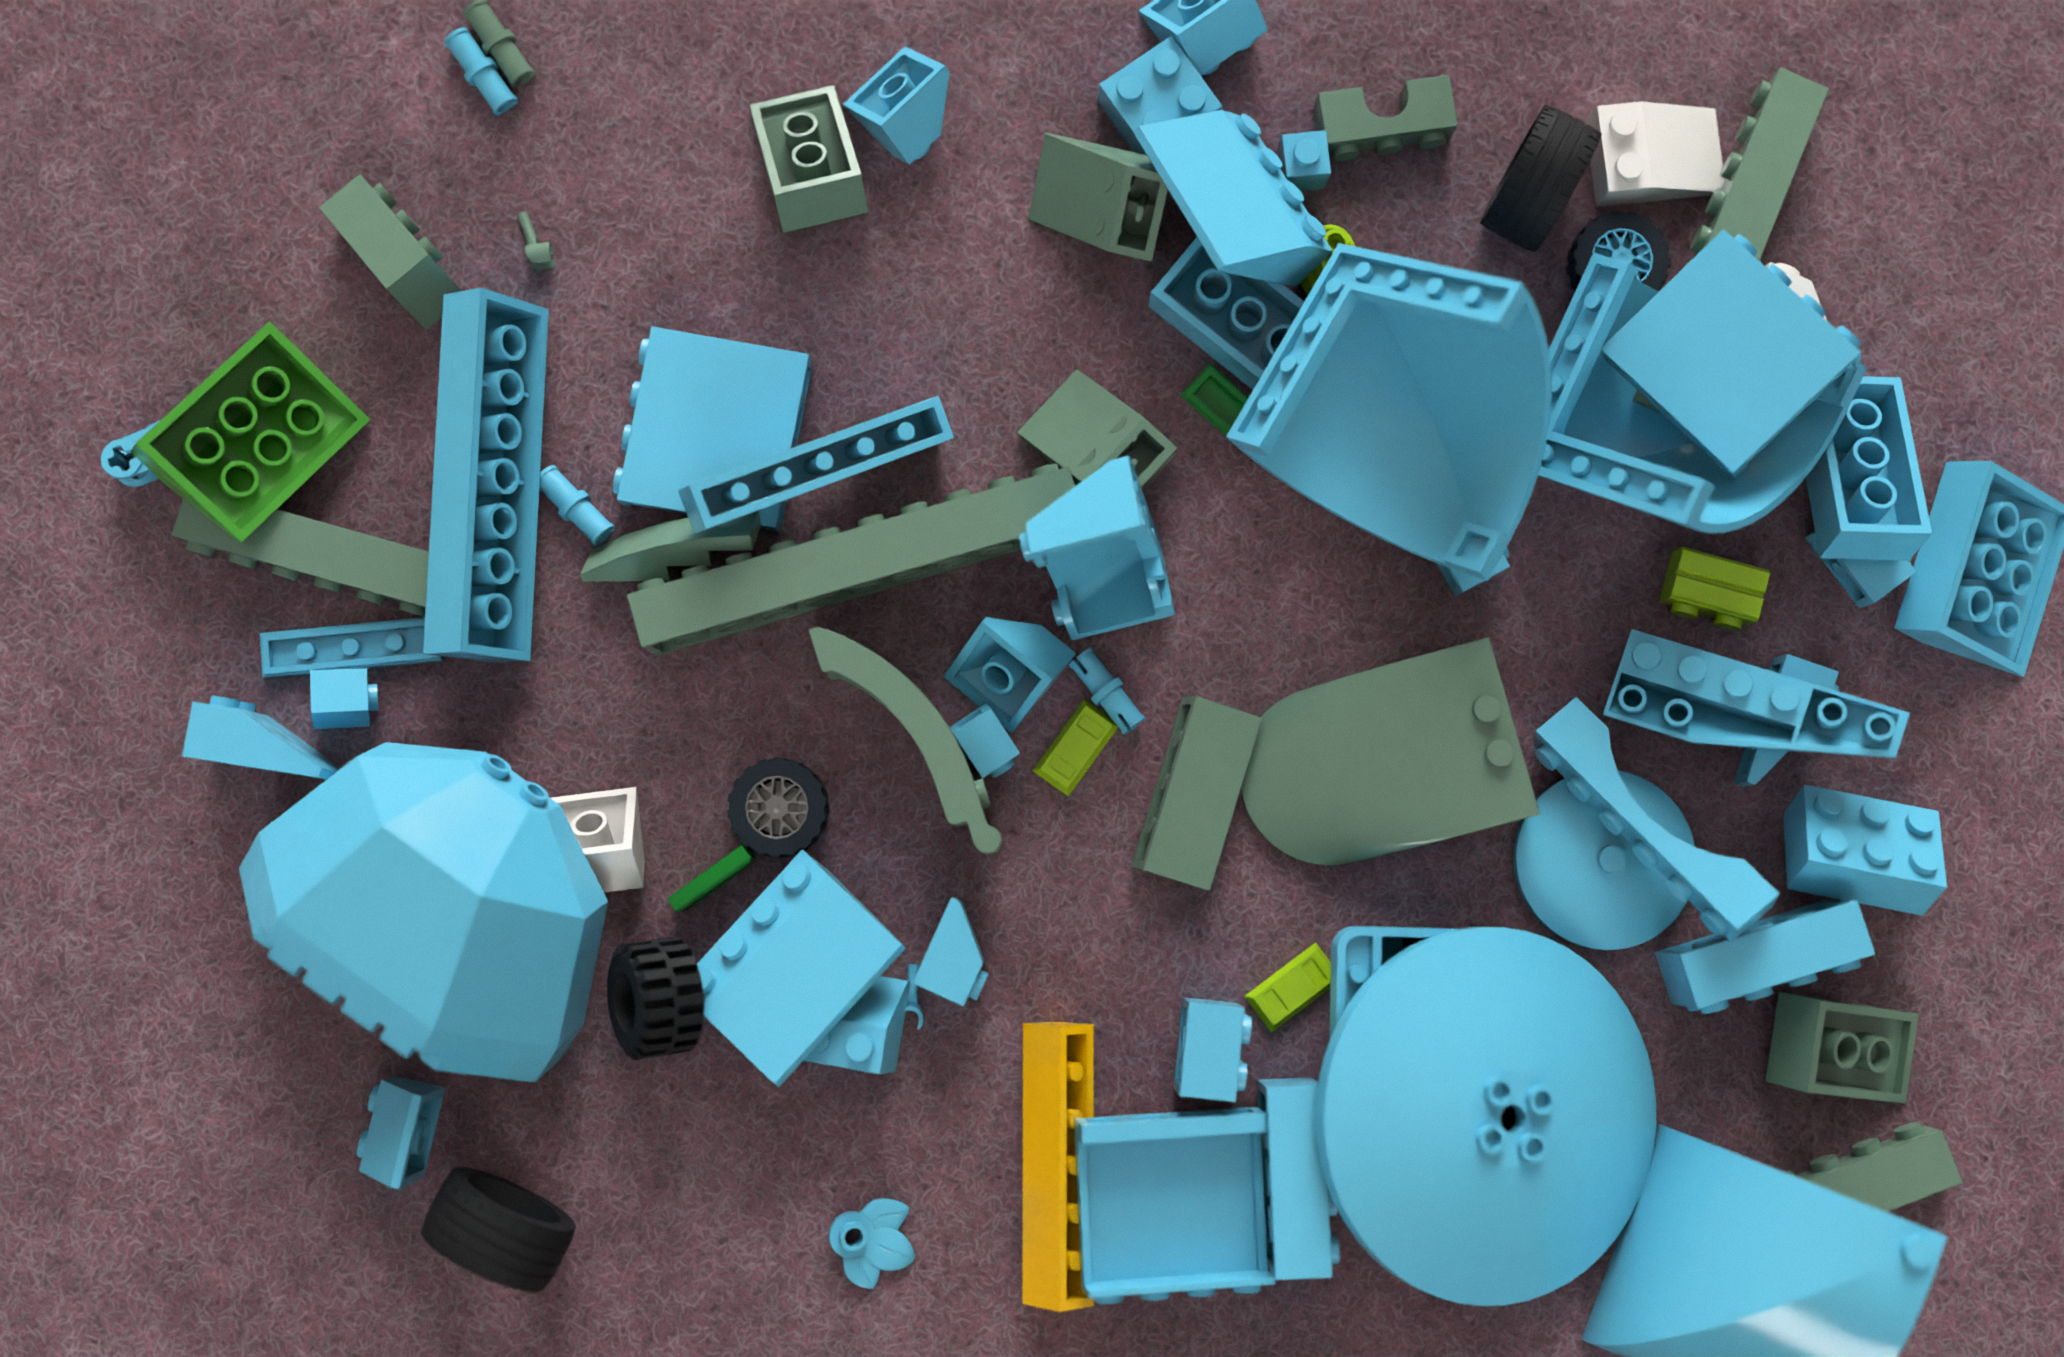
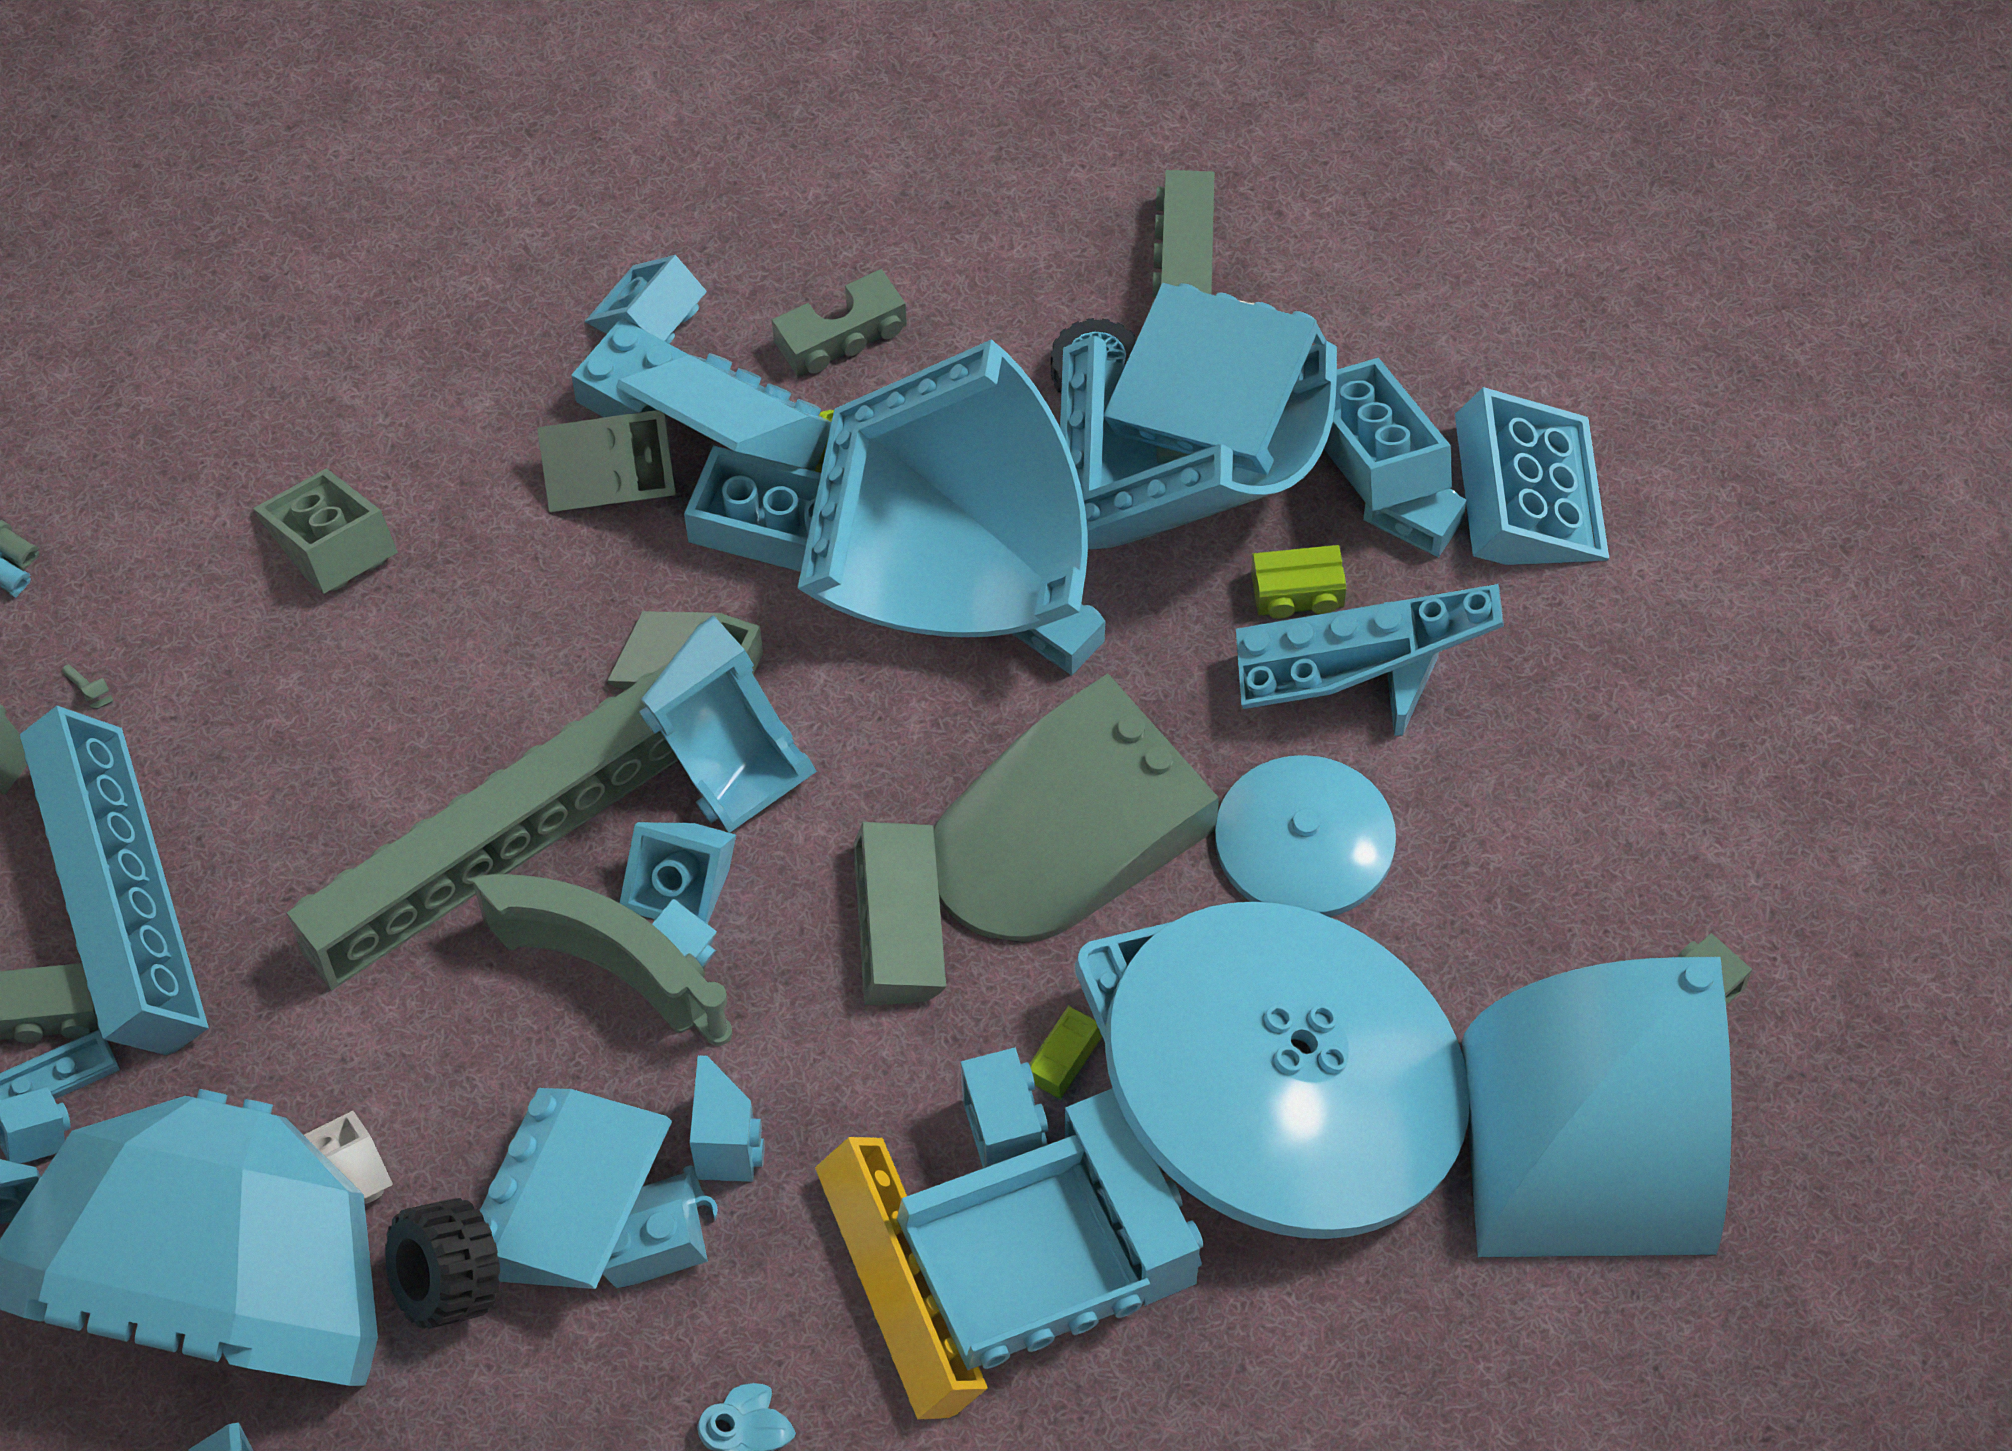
camera: 20 degrees left, 25 degrees down
(575, 506) = (206, 886): medium azure pin -> none
(661, 547) = (310, 875): sand green slope -> none
(705, 412) = (315, 770): medium azure panel -> none
(711, 879) = (459, 1155): green tile -> none
(778, 807) = (499, 1070): black wheel -> none
(815, 464) = (425, 752): medium azure brick -> none
(903, 104) = (399, 457): medium azure slope -> none
(1076, 747) = (770, 923): lime tile -> none
(1107, 691) = (779, 861): medium azure pin -> none
(1215, 398) = (780, 592): green tile -> none
(1305, 159) = (785, 370): medium azure brick -> none
(1541, 178) = (994, 300): black tyre -> none
(1654, 153) = (1086, 272): white slope -> none
(1720, 887) = (1398, 787): medium azure arch -> none
(1767, 954) = (1479, 847): medium azure brick -> none
(1841, 1048) = (1592, 906): sand green slope -> none
(1864, 850) = (1527, 731): medium azure brick -> none

